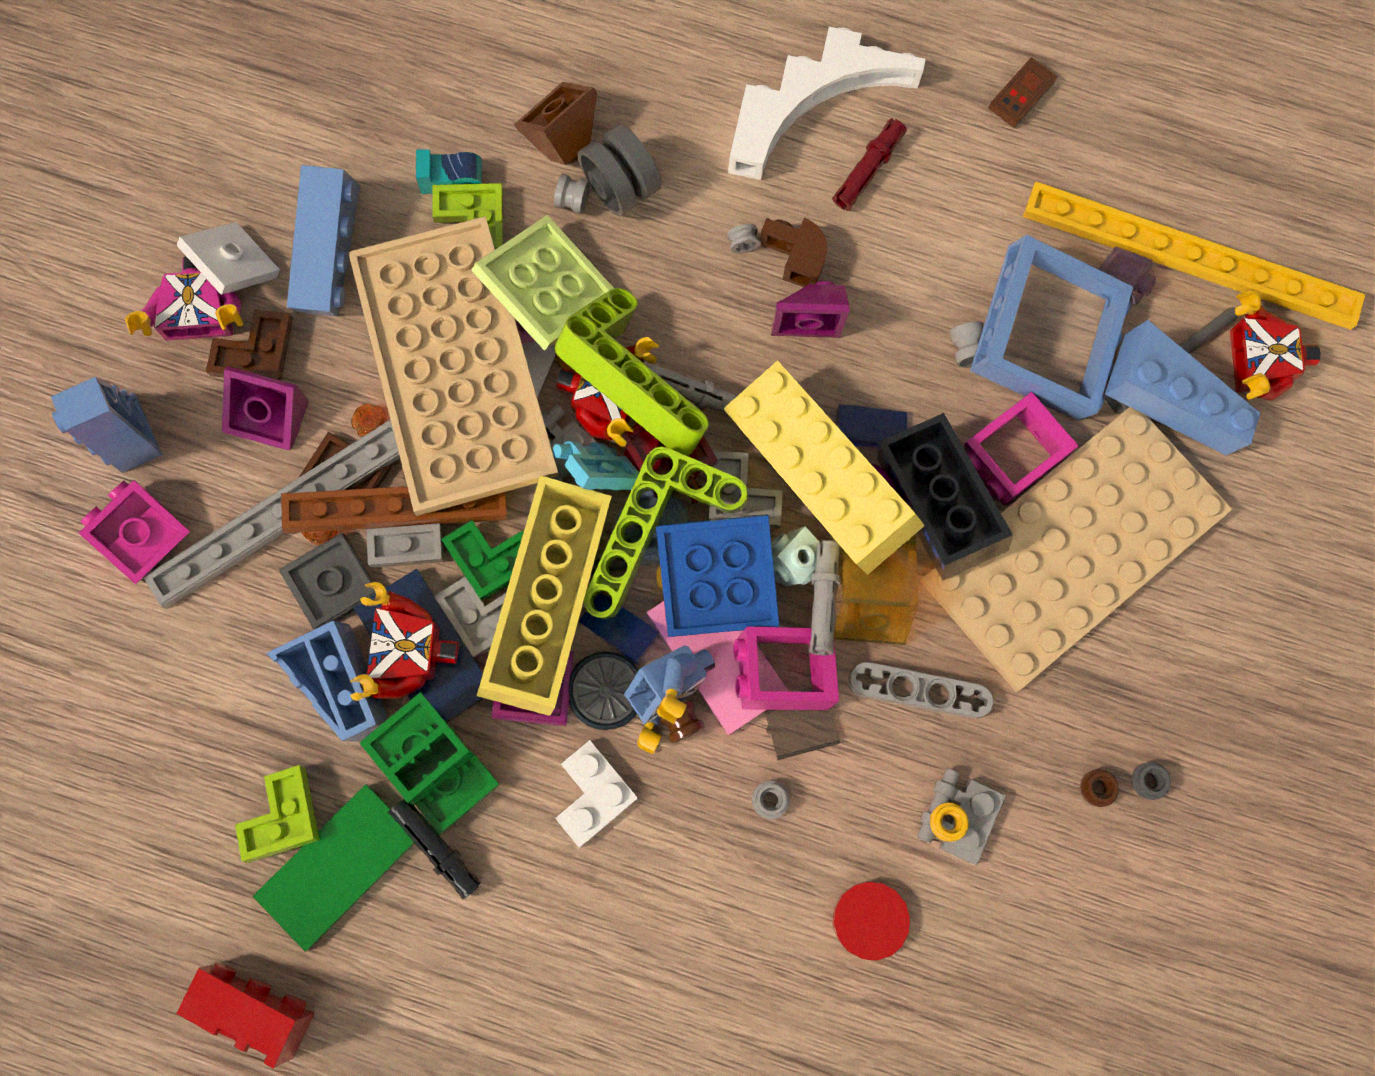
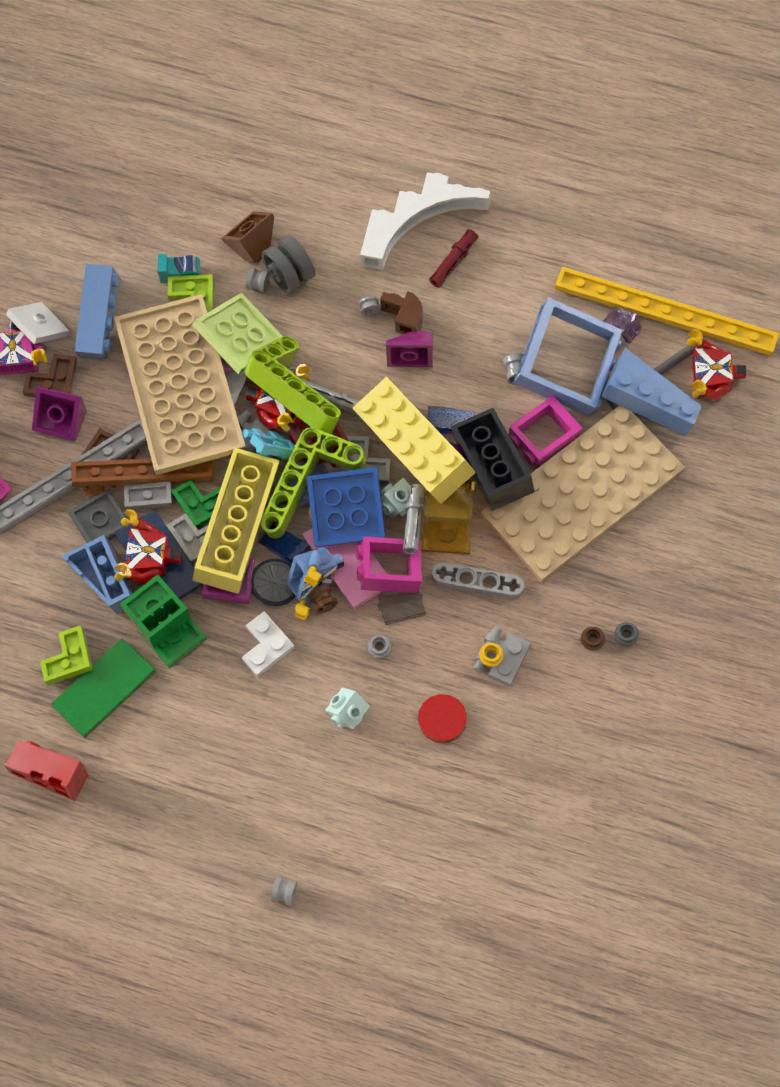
camera: 10 degrees right, 10 degrees down
(365, 412) = (123, 416): clear orange plate -> none
(435, 848) = (166, 675): black pin -> none
(724, 911) = (347, 708): none -> light aqua brick
(1022, 92) = (557, 211): reddish brown tile -> none

